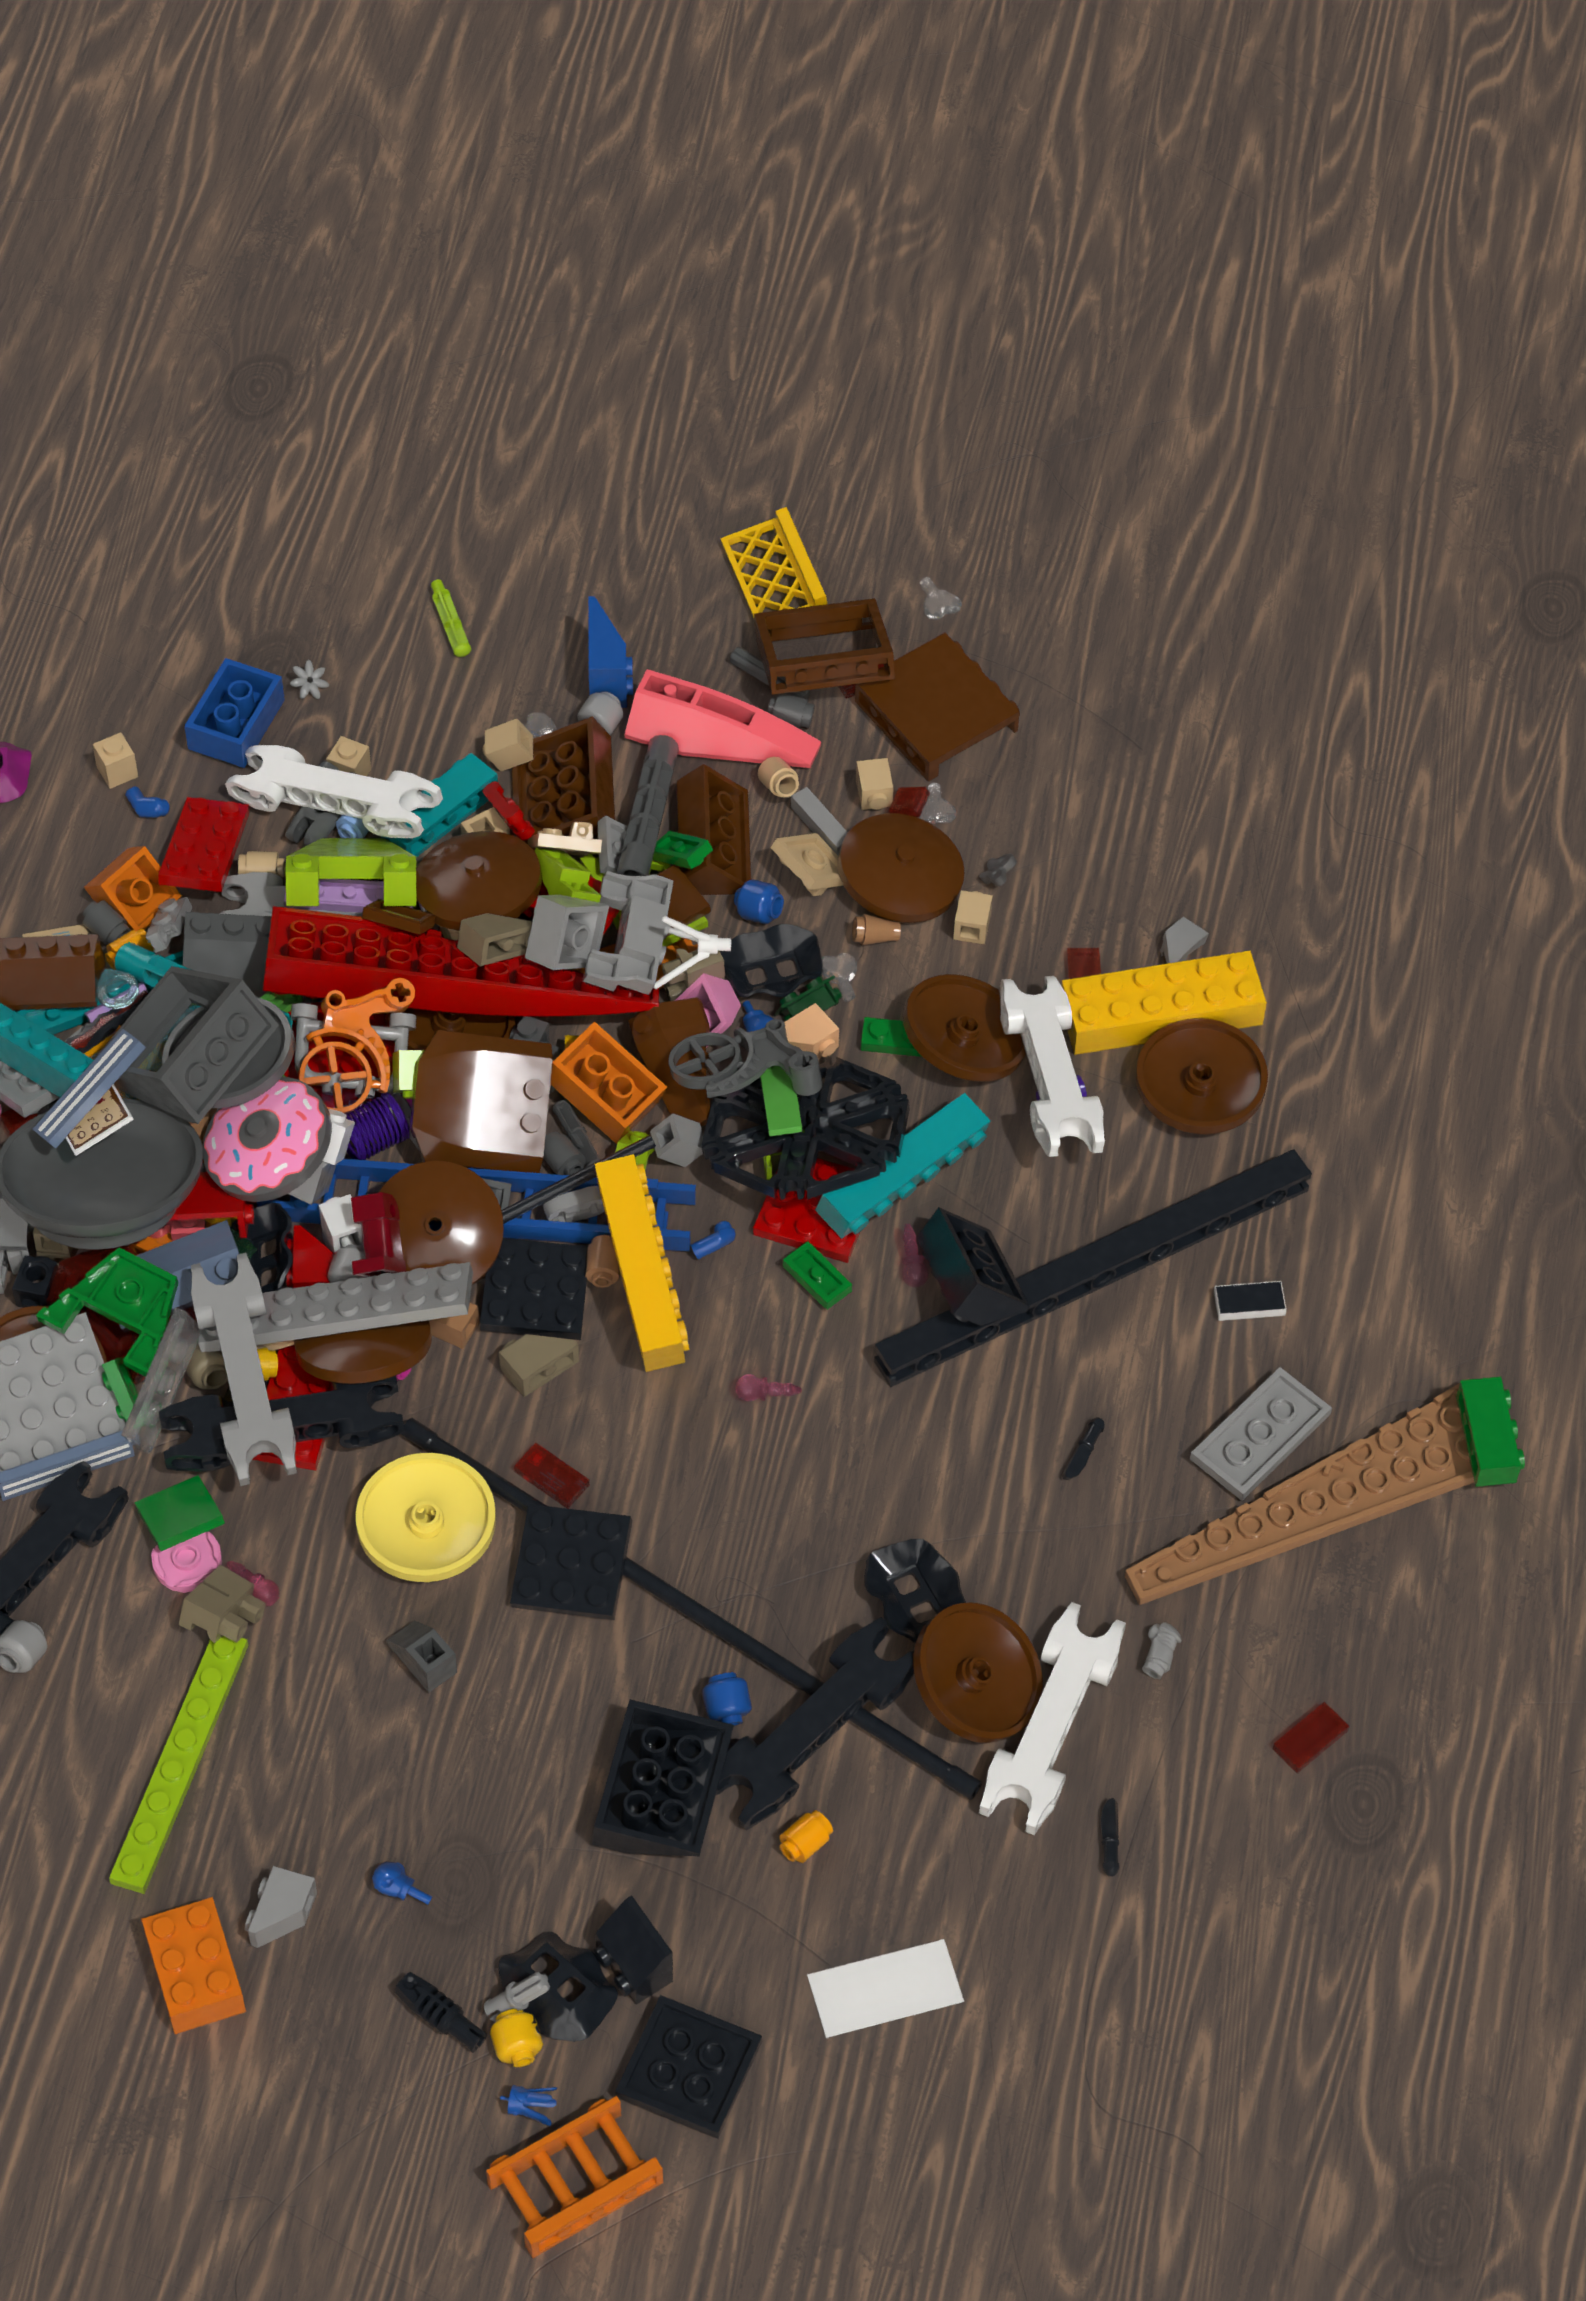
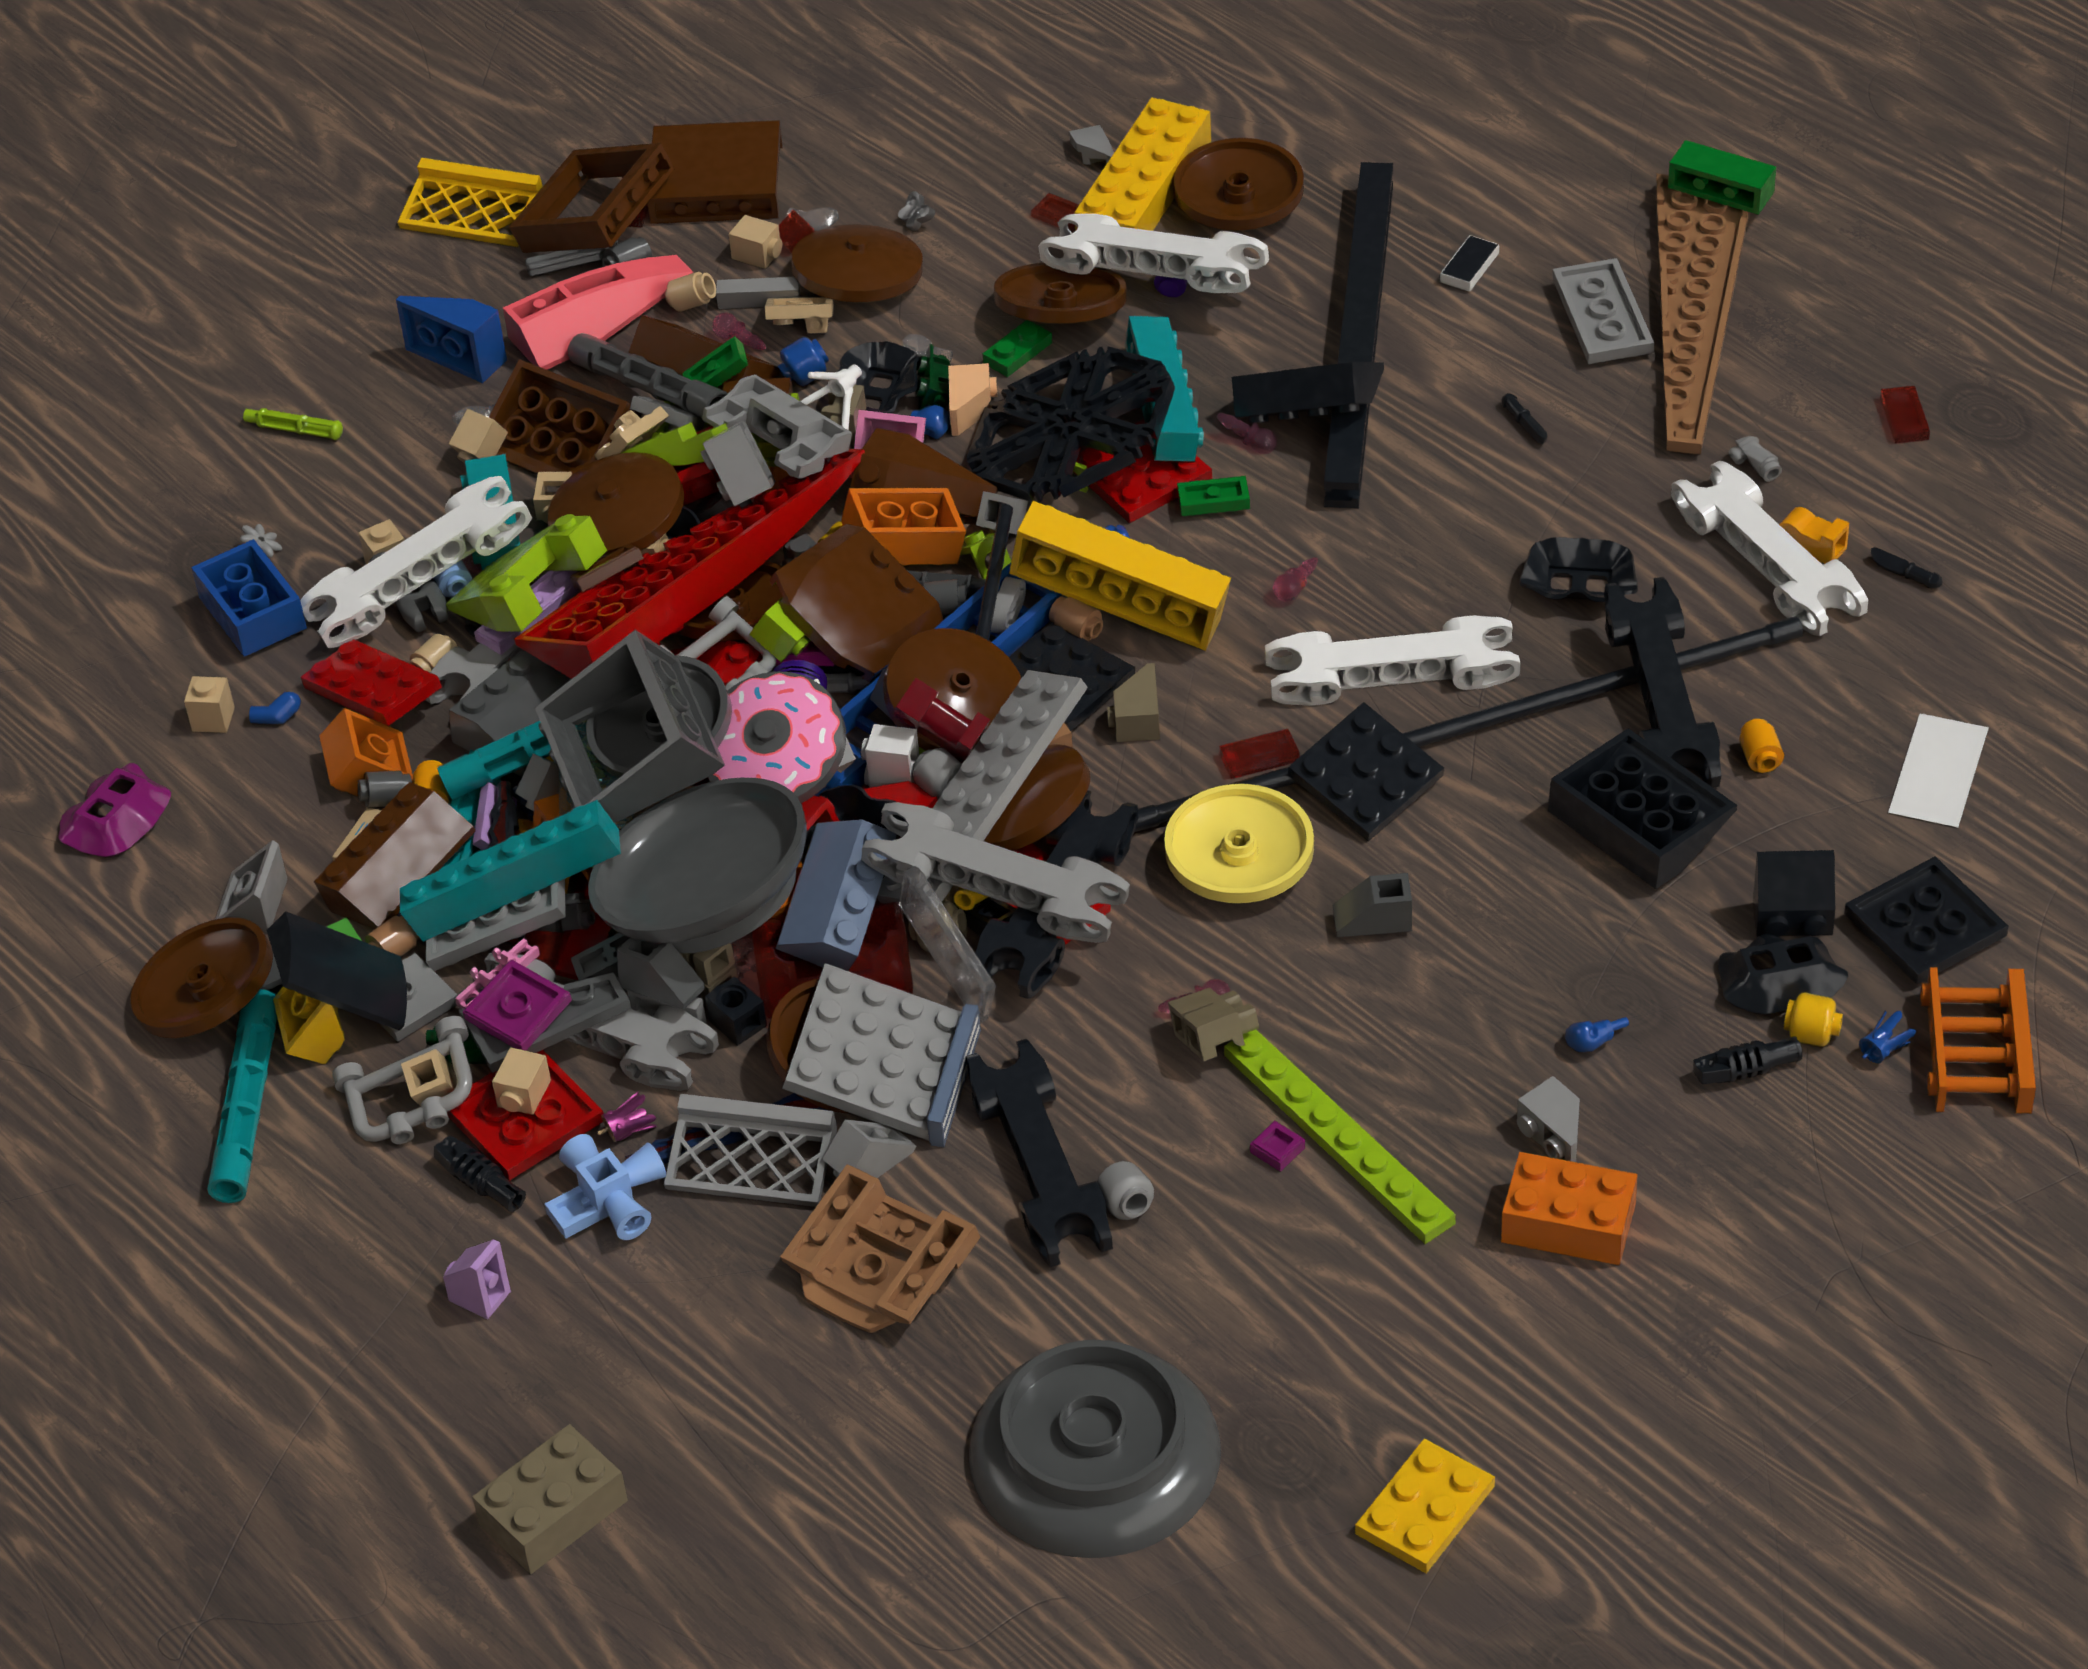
camera: 50 degrees left, 10 degrees down
(89, 1088) = (618, 816): sand blue tile -> none
(101, 1121) = (646, 833): piece -> none
(112, 980) = (461, 799): clear light blue piece -> none
(117, 1378) = (911, 982): green plate -> none
(127, 1293) = (846, 913): green wing -> none
(141, 1725) = (1277, 1146): none -> magenta tile
(167, 922) = (436, 740): light grey hinge -> none
(179, 1513) = (1080, 1014): green tile -> none
(187, 1563) = (1127, 1038): bright pink tile -> none
(351, 1021) = (695, 633): orange piece -> none
(493, 938) = (695, 513): dark tan slope -> none
(508, 811) = (565, 459): red plate -> none
(517, 1995) = (1779, 992): light grey axle -> none
(604, 708) = (500, 365): light grey head -> none
(727, 1698) = (1585, 732): blue head -> none
(753, 1551) = (1455, 653): none -> white piece
(764, 826) = (726, 326): none -> clear pink bar
(765, 1049) = (978, 403): dark grey piece -> none
(780, 1102) = (1026, 415): bright green slope -> none
(874, 930) = (899, 310): medium nougat cone -> none
(938, 601) = (607, 127): clear rock -> none
(972, 917) = (949, 245): tan brick -> none
(977, 1672) = (1699, 560): reddish brown dish -> none
(1094, 1745) = (1818, 536): none -> light orange leg

